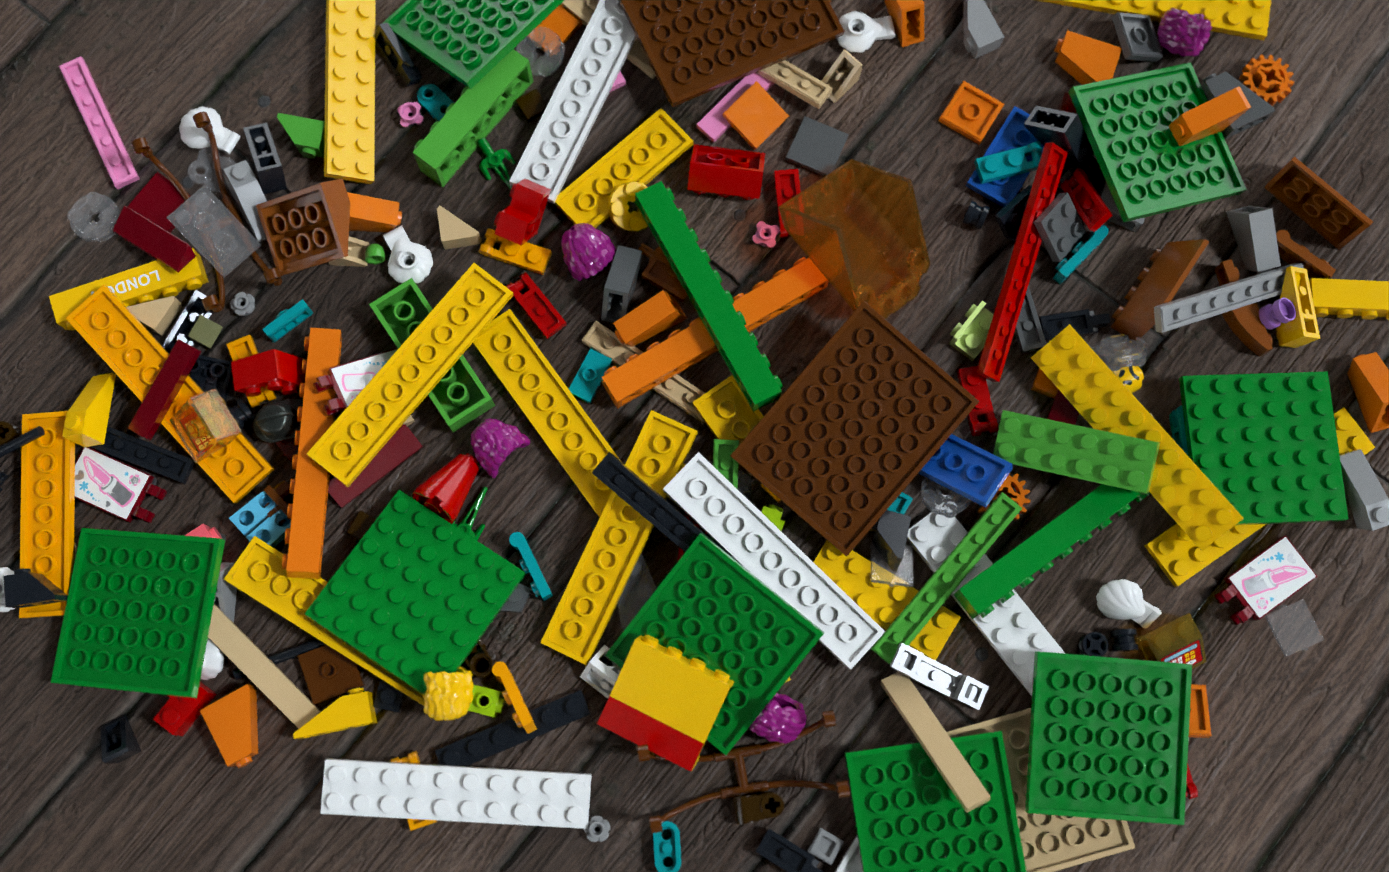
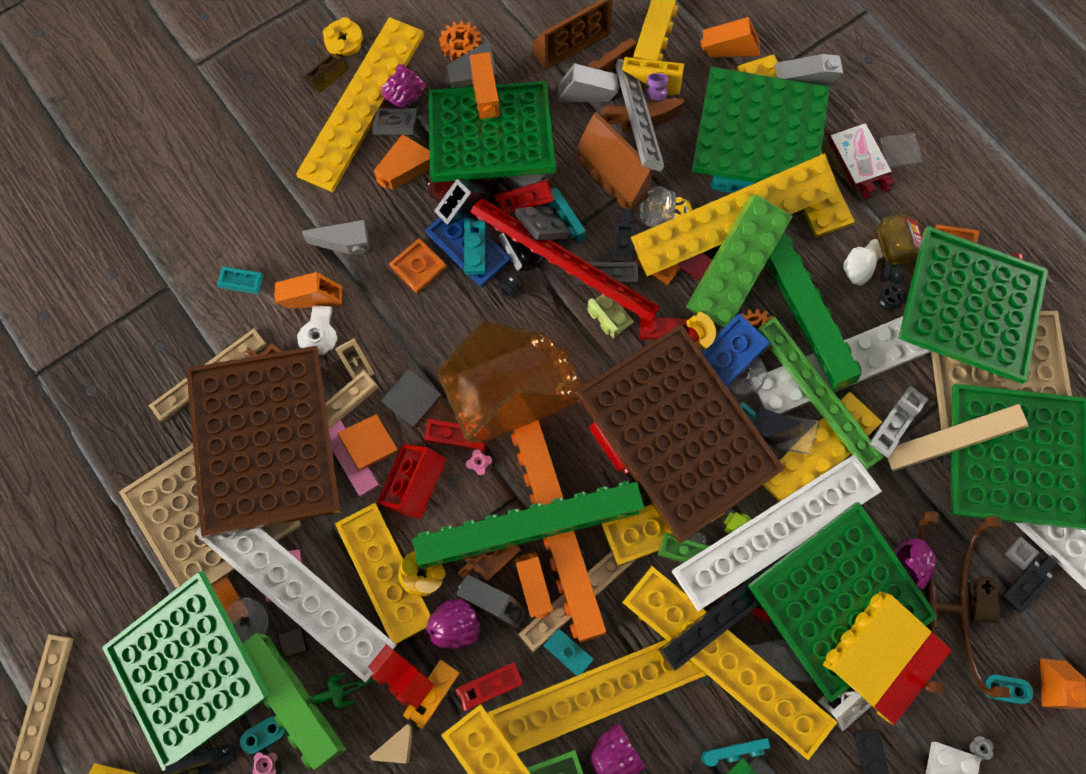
camera: 70 degrees left, 5 degrees down
(985, 435) = (704, 328): none -> yellow piece

